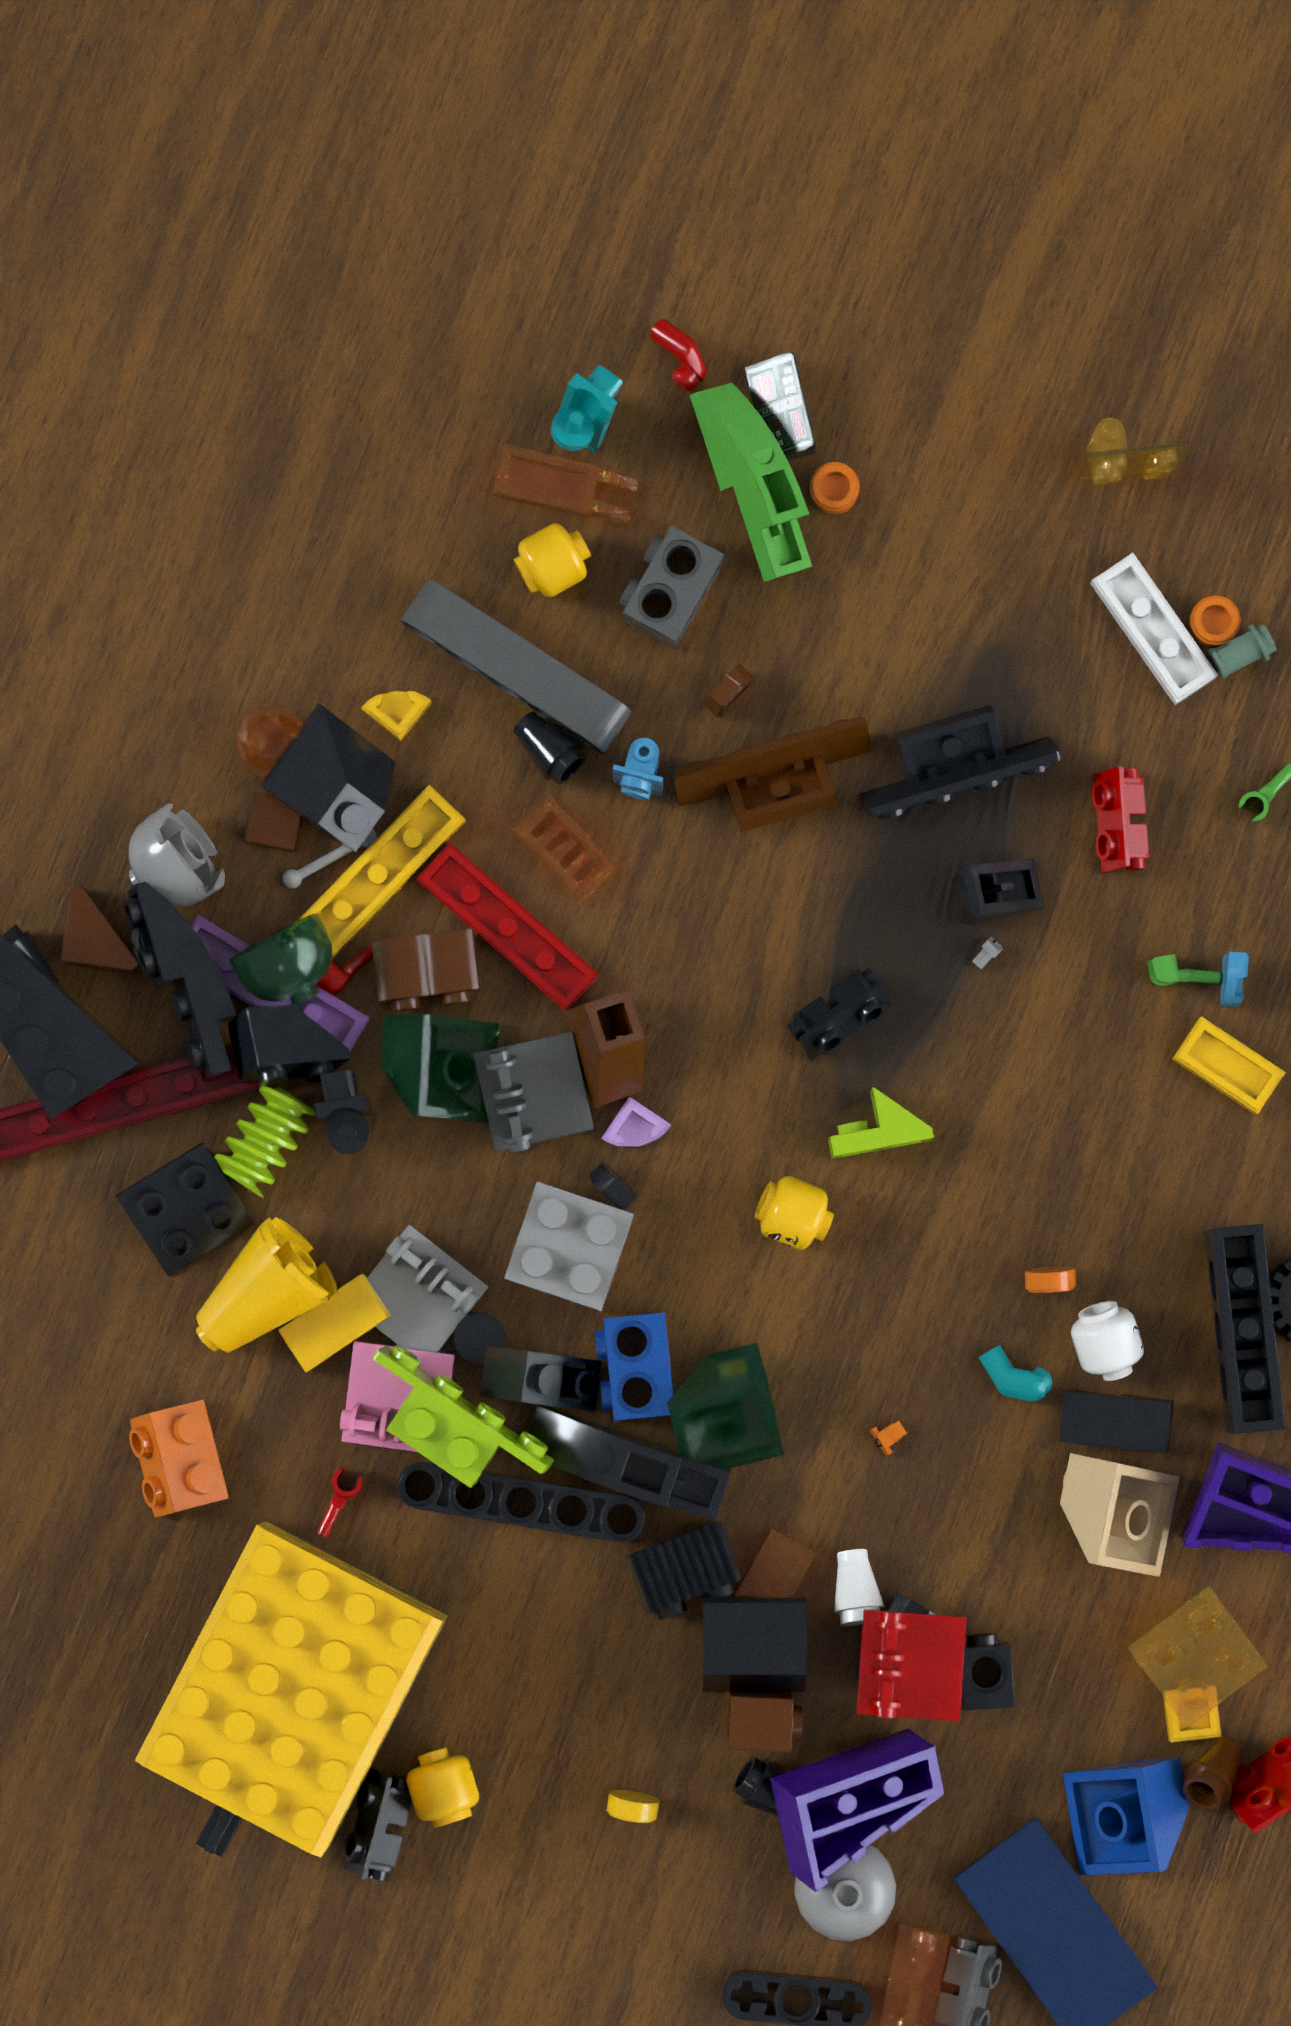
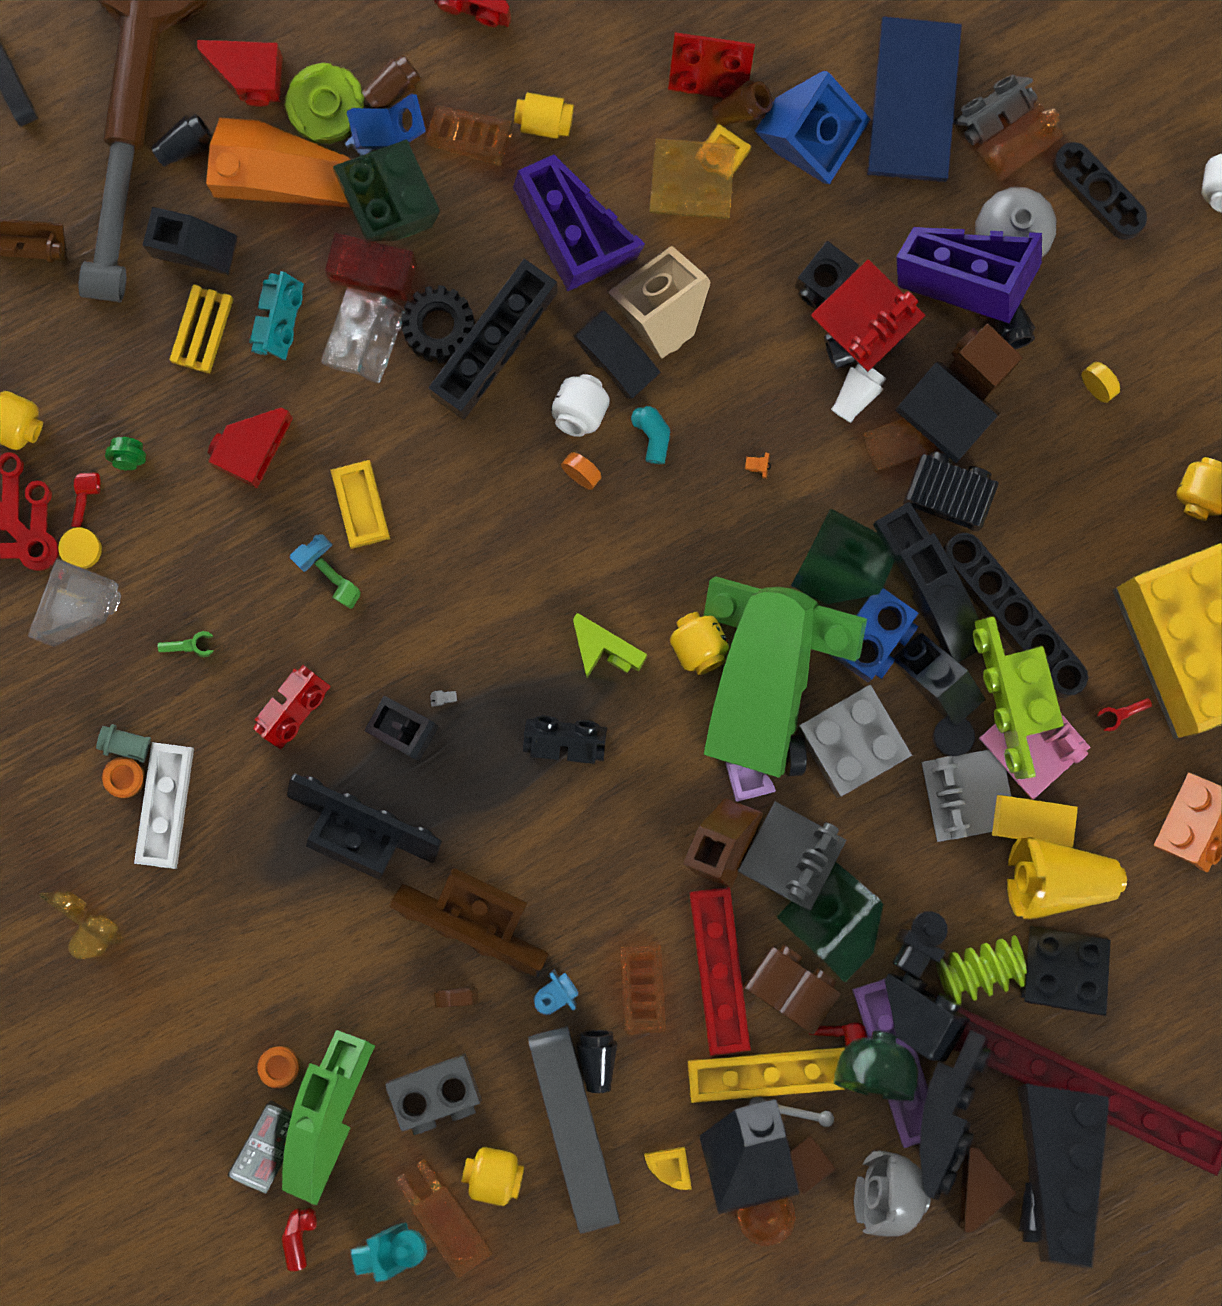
camera: 140 degrees left, 0 degrees up
(709, 1245) = (769, 668): none -> bright green slope

